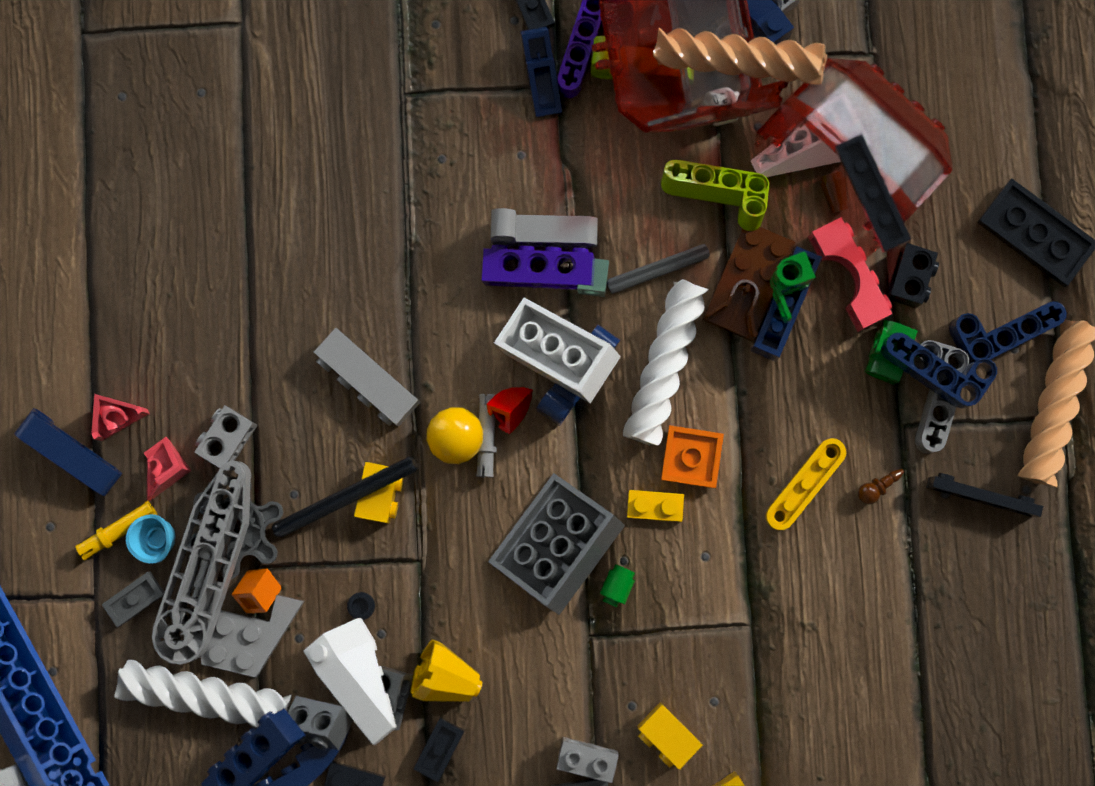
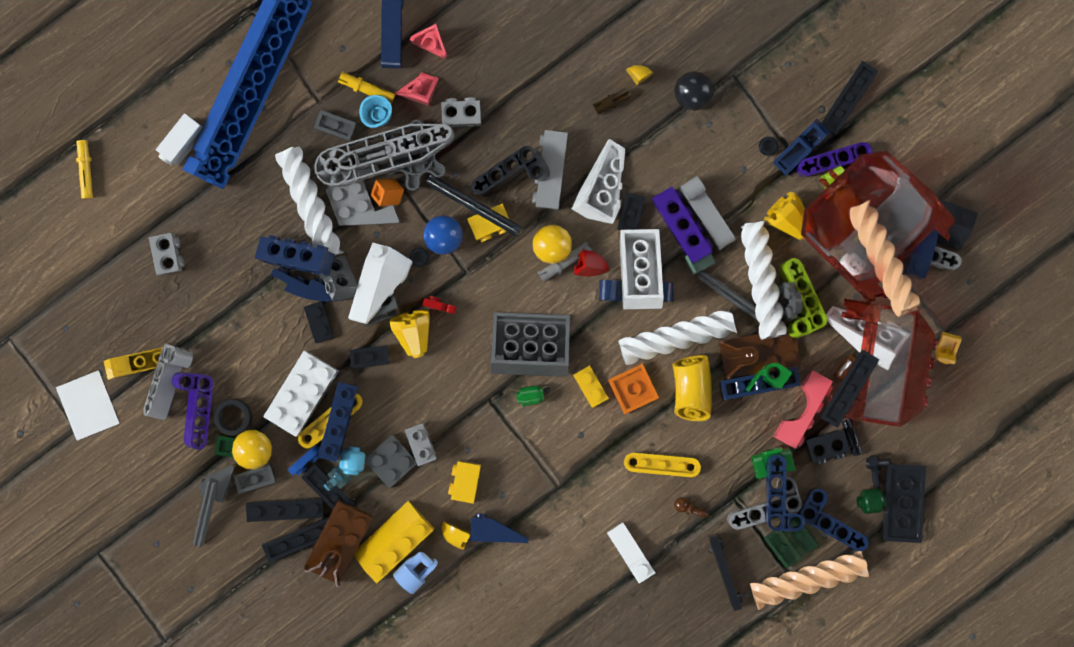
camera: 55 degrees right, 5 degrees up
(325, 198) = (639, 73): none -> yellow brick
(335, 252) = (611, 101): none -> dark brown axle
(335, 432) = (507, 174): none -> black beam
(353, 559) = (443, 235): none -> blue piece
(390, 148) = (694, 91): none -> black piece
(429, 625) = (434, 302): none -> red plate
(431, 335) = (601, 190): none -> white wedge
(481, 317) = (631, 212): none -> black plate
(514, 109) = (768, 146): none -> black plate
(611, 138) = (787, 215): none -> yellow cone
(664, 217) = (762, 277): none -> white piece
(711, 204) = (790, 300): none -> dark grey plate
(739, 385) = (693, 388): none -> yellow brick
(749, 744) = (491, 530): none -> dark blue slope
(888, 593) = (631, 552): none -> white slope
(890, 61) = (947, 348): none -> yellow bracket
(928, 242) = (852, 437): none -> black axle
(969, 235) = (875, 463): none -> black piece
(1004, 398) = (791, 545): none -> clear green slope
(1011, 267) = (871, 501): none -> dark green head

